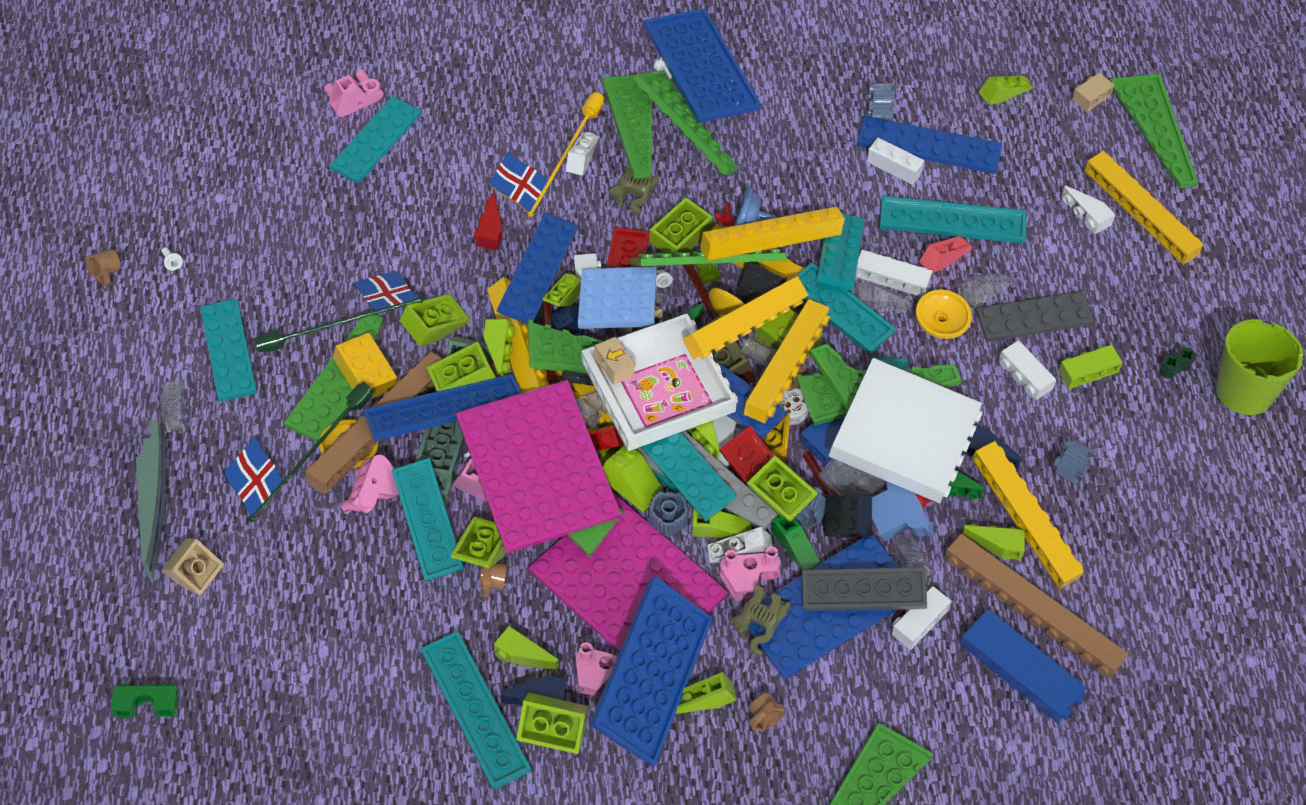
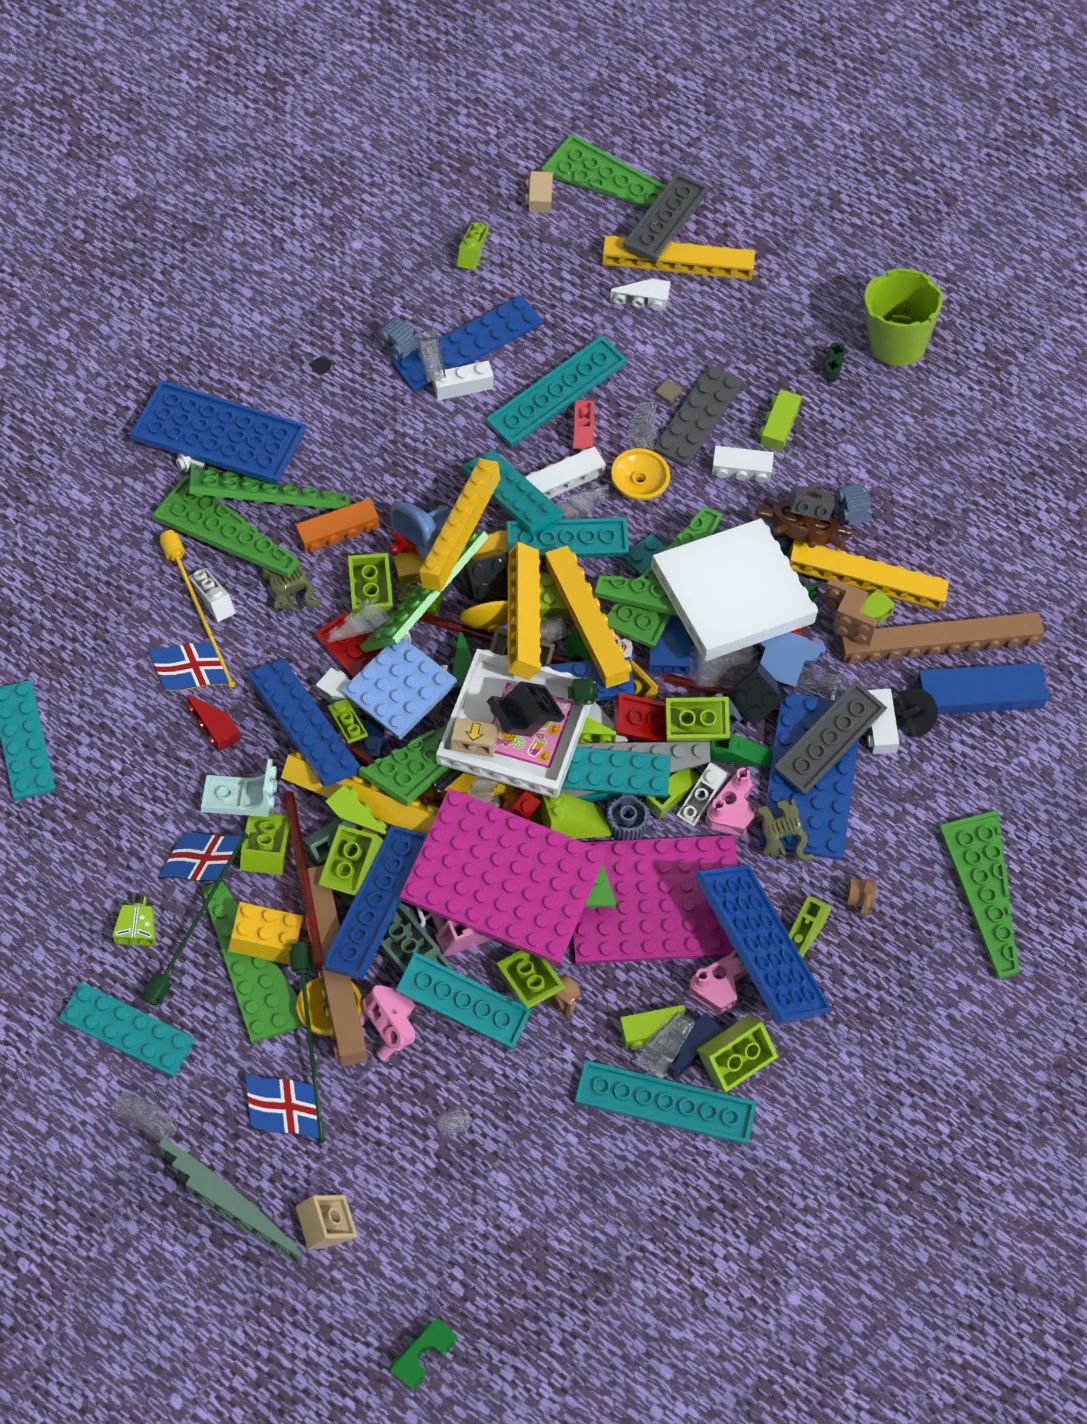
camera: 50 degrees left, 5 degrees up
(305, 295) = (136, 924): none -> lime torso
(335, 585) = (453, 1121): none -> clear head
(421, 356) = (304, 881): none -> clear red piece
(453, 278) = (240, 794): none -> light aqua bracket
(511, 671) = (664, 1045): none -> clear slope
(646, 241) = (363, 621): none -> clear slope
(665, 371) = (525, 709): none -> black bracket
(707, 179) = (337, 526): none -> orange brick
(717, 396) = (583, 691): none -> dark green head
(817, 81) = (321, 365): none -> black piece
(889, 123) = (431, 354): none -> clear slope
(951, 633) = (915, 712): none -> black shield
(977, 521) = (849, 616): none -> medium nougat bracket
(1022, 436) = (806, 517): none -> reddish brown brick
(1032, 284) = (668, 391): none -> dark tan tile
(1161, 172) = (666, 217): none -> dark grey plate

